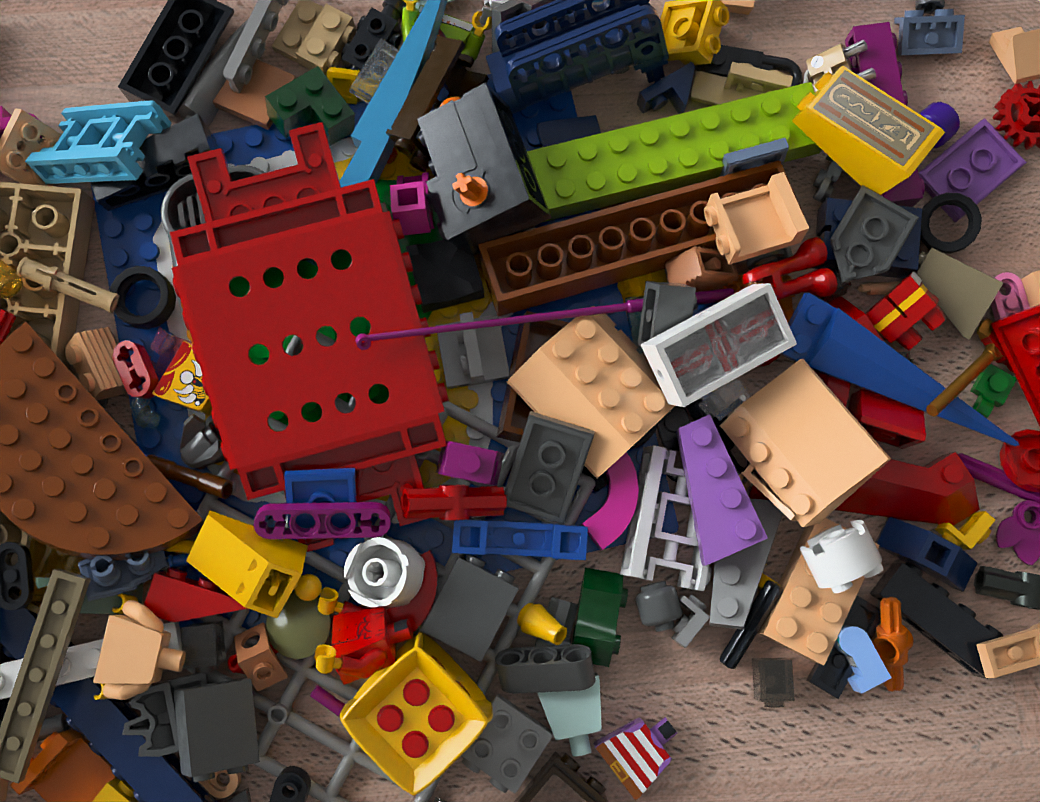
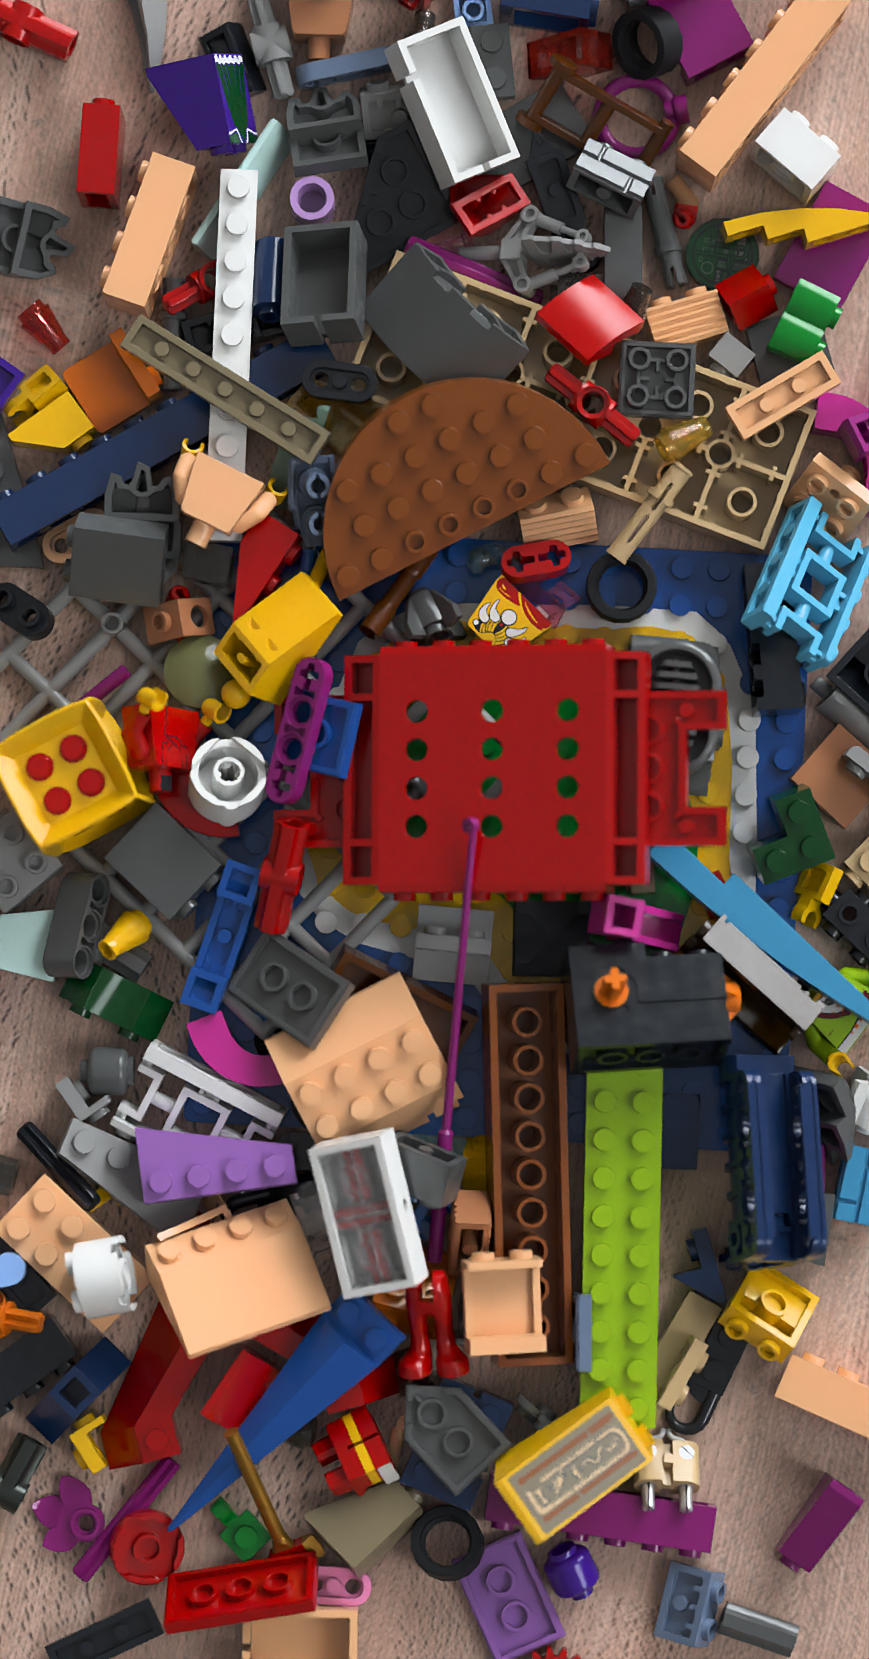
camera: 105 degrees right, 5 degrees up
(373, 71) = (815, 924): clear plate -> none
(470, 463) = (319, 904): magenta torso -> none

